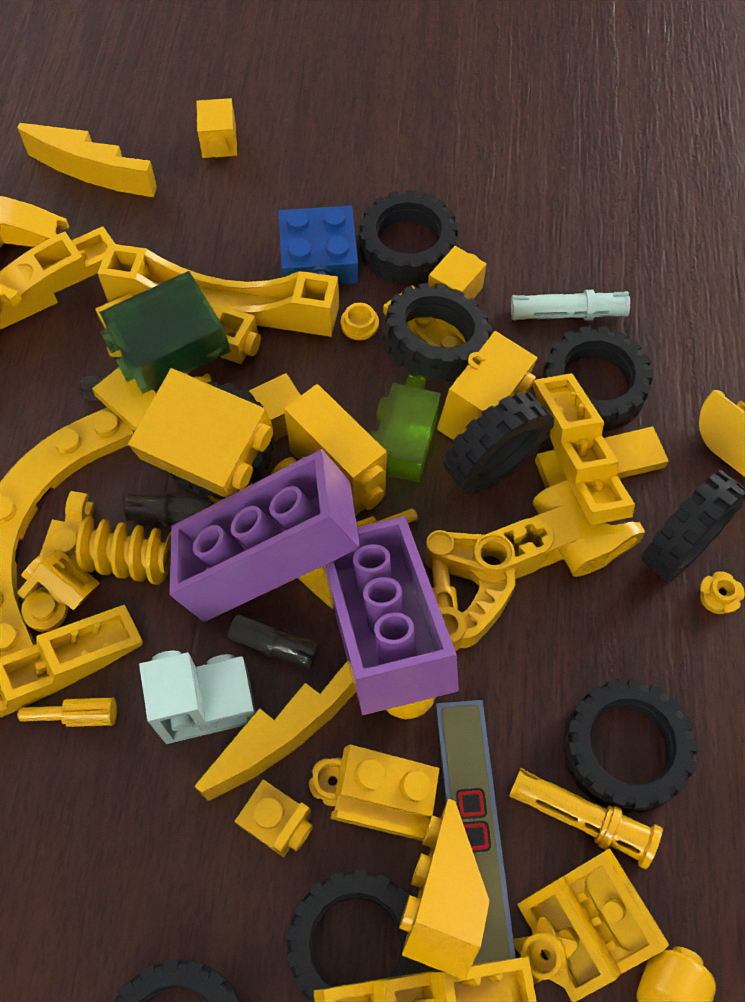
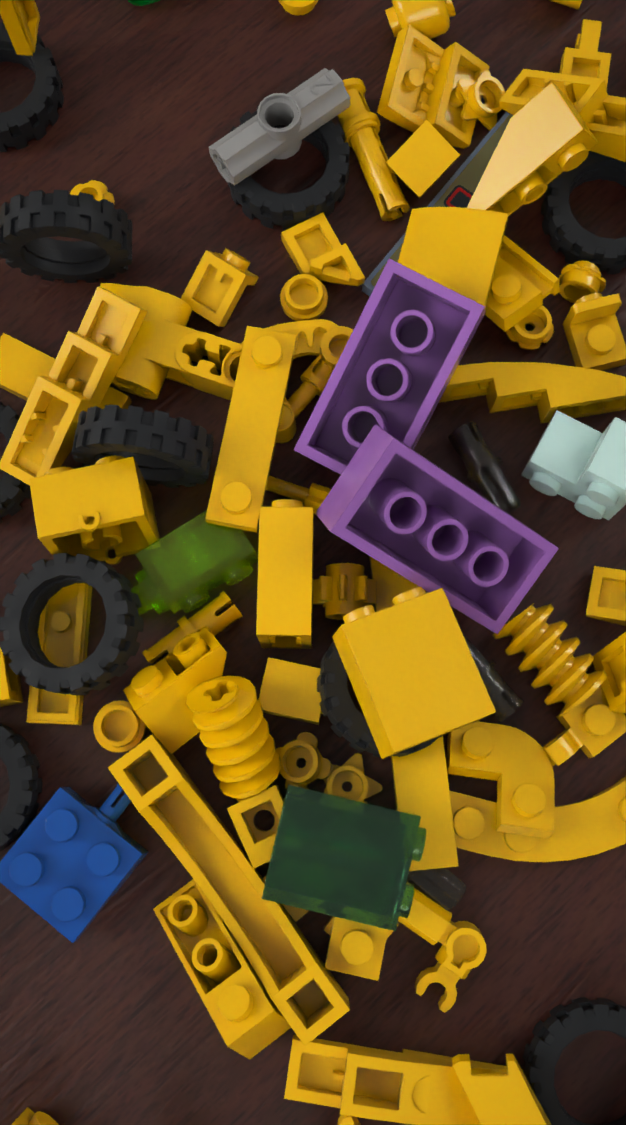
camera: 135 degrees left, 15 degrees up
(64, 368) = (461, 948): none -> yellow bar
(93, 474) = (517, 765): none -> yellow plate
(192, 251) = (220, 972): none -> yellow slope
(239, 373) = (305, 748): none -> yellow plate
(285, 346) = (235, 735): none -> yellow piece
(323, 854) = (580, 280): none -> yellow plate
(342, 348) = (161, 690): none -> yellow slope
(368, 392) = (204, 617): none -> yellow pin
(434, 761) = (455, 247): none -> yellow slope
(449, 516) = (251, 429): none -> yellow plate
(512, 655) = (304, 297): none -> yellow plate
(534, 700) = (320, 253): none -> yellow slope
(534, 836) = (423, 159): none -> yellow brick
(576, 610) = (218, 285): none -> yellow bracket
(654, 774) = (300, 110): none -> light grey piece

